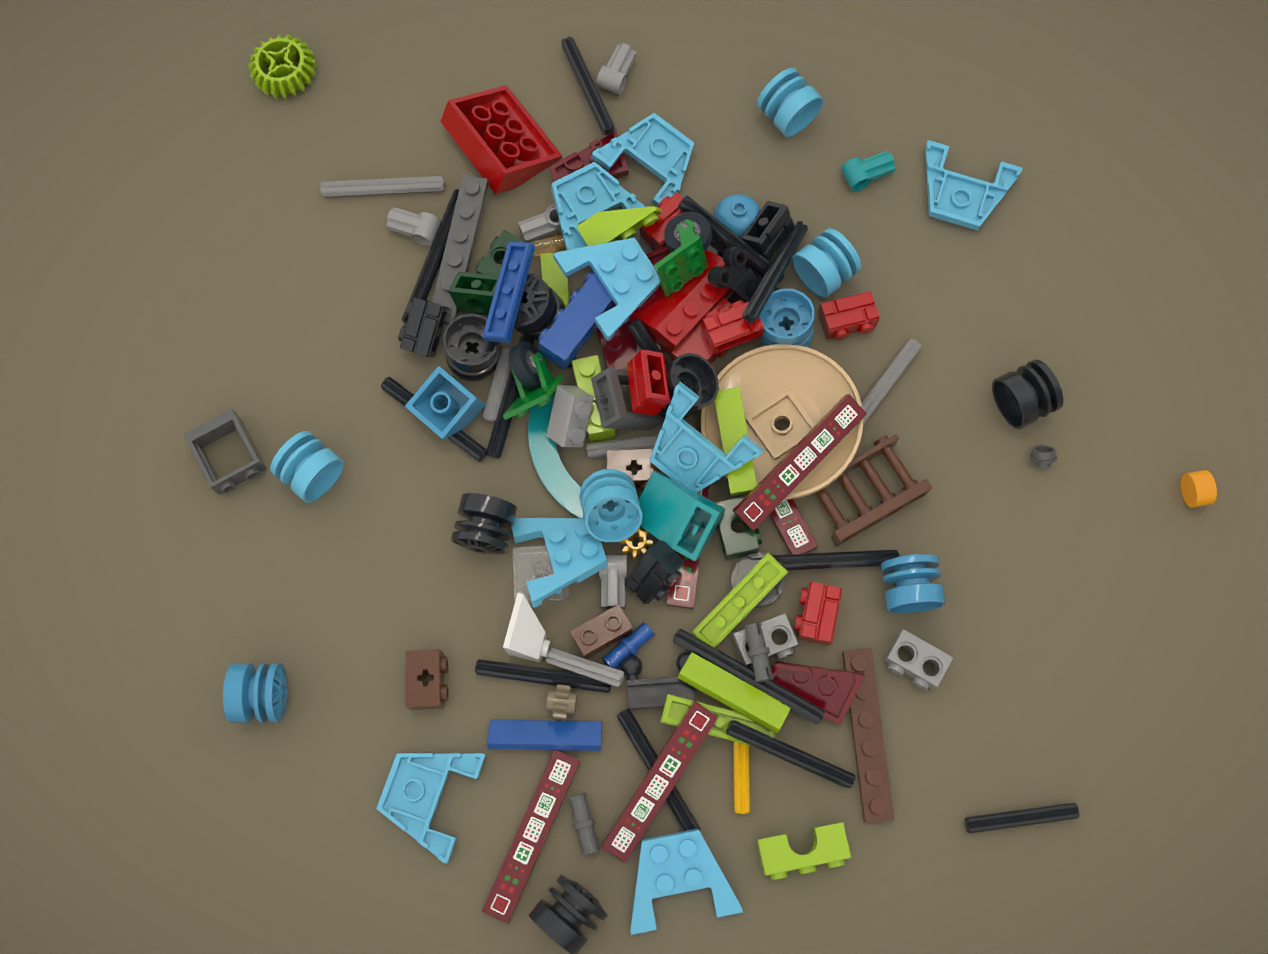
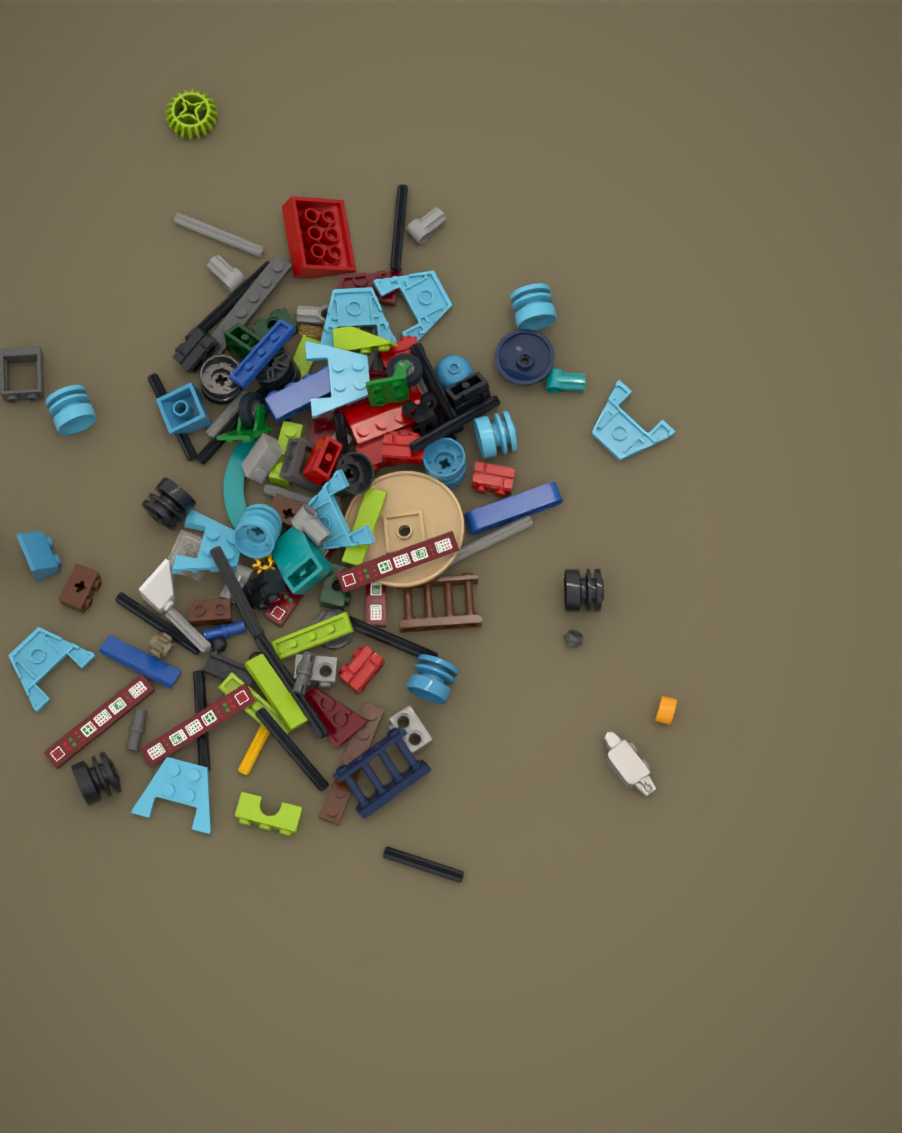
camera: 20 degrees right, 0 degrees up
(353, 662) = (39, 554): none -> dark azure slope
(622, 592) = (236, 592): none -> black axle
(666, 465) = (307, 522): none -> light grey piece
(811, 149) = (521, 346): none -> dark blue dish
(891, 337) = (513, 508): none -> beam
(936, 740) = (399, 782): none -> dark blue fence
(1191, 574) = (628, 765): none -> hinge

